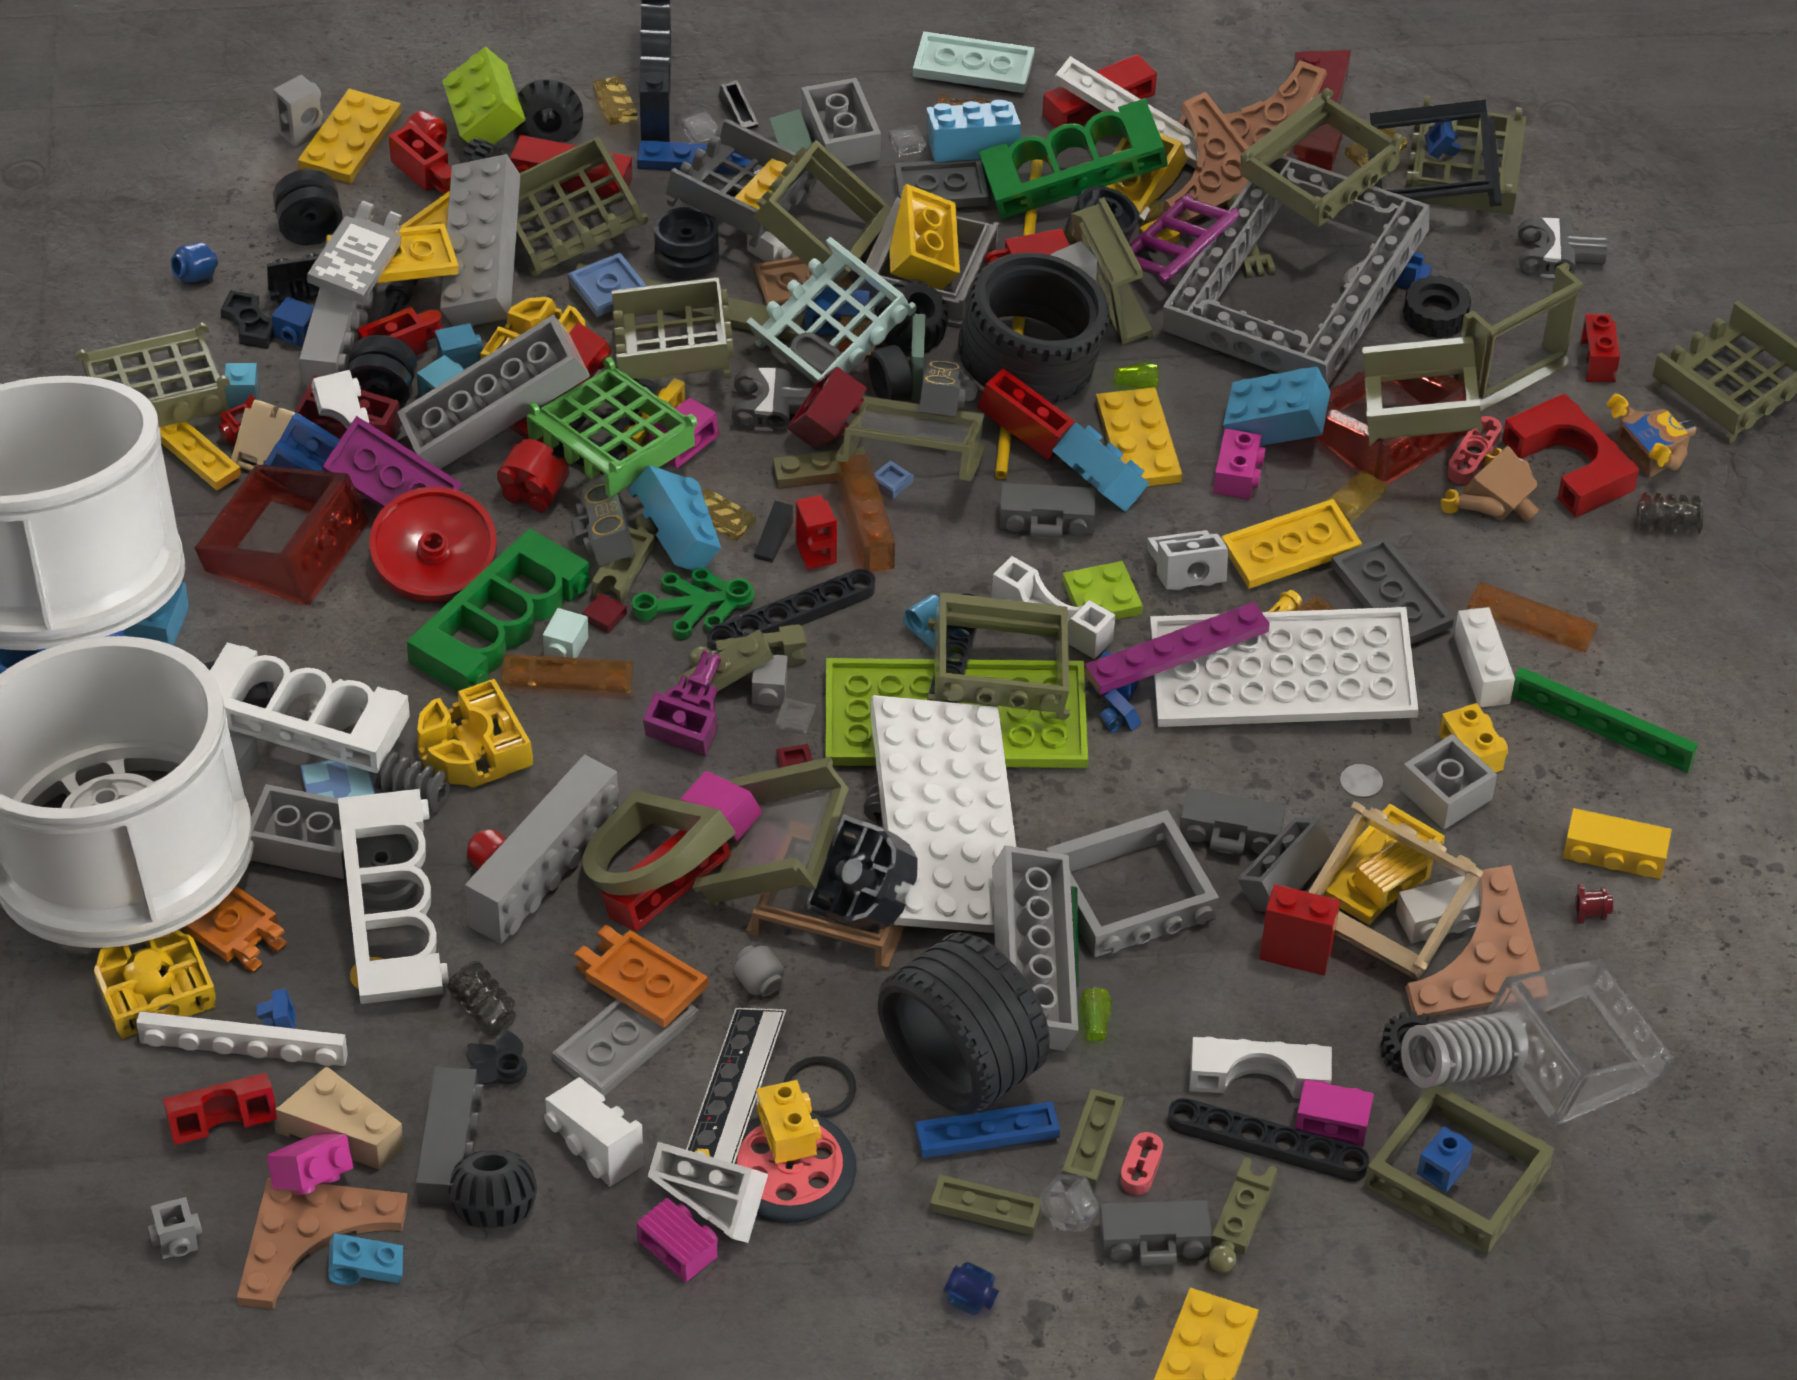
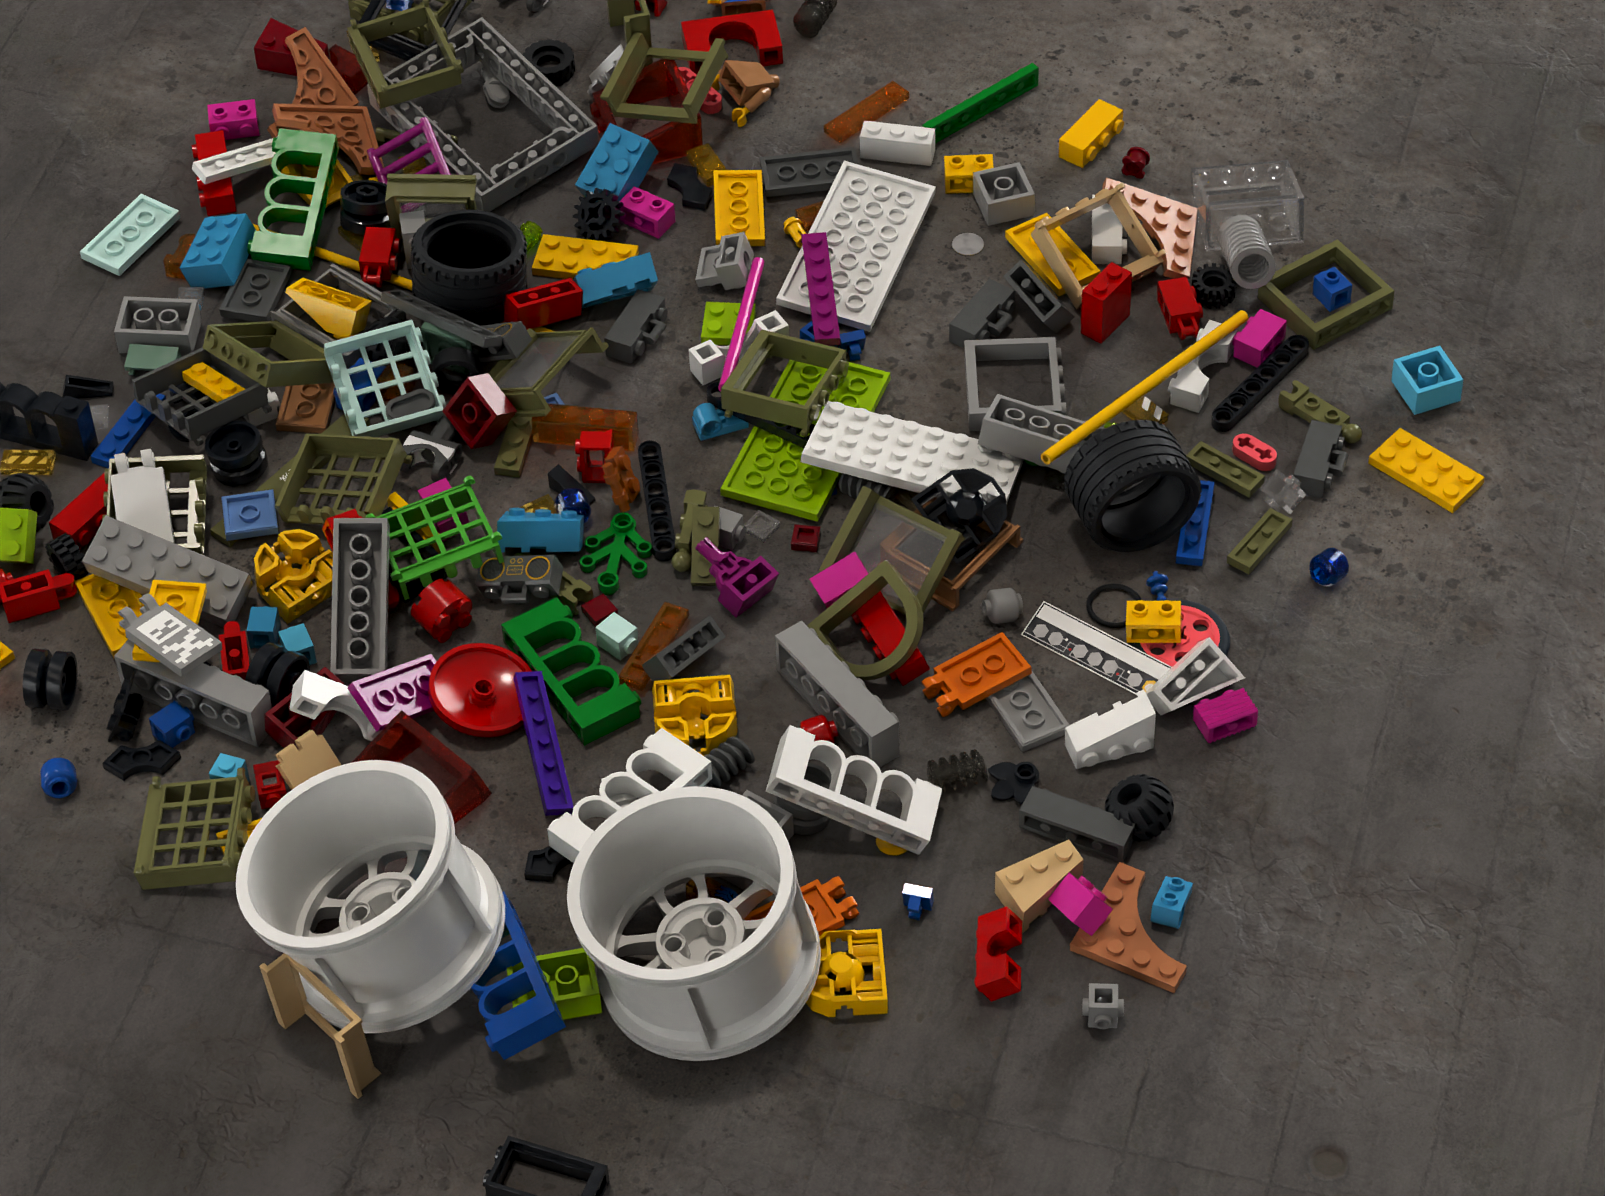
camera: 65 degrees left, 0 degrees up
(242, 1039) = (928, 934): white plate -> none
(302, 446) = (342, 739): blue slope -> none
(380, 616) = (543, 743): none -> dark purple plate
(555, 693) = (684, 650): none -> dark grey brick
(564, 185) = (142, 495): none -> white tile
(739, 539) = (573, 500): none -> clear blue head
(792, 562) = (620, 478): none -> dark orange plate
(860, 1122) = (1157, 584): none -> blue hair
(935, 329) = (442, 318): none -> dark grey tile
(1112, 593) = (742, 319): none -> dark pink piece
(1158, 1000) = (1143, 387): none -> yellow piece
(1158, 1027) = (1145, 410): none -> clear yellow tile
(1187, 77) = (235, 118): none -> dark pink brick
(1200, 419) = (608, 215): none -> black gear
(1316, 486) = (686, 181): none -> black tile
(1348, 1314) = (1427, 380): none -> medium azure brick
(1350, 1016) = (1179, 306): none -> red brick
(1391, 872) = (1075, 243): yellow brick -> none

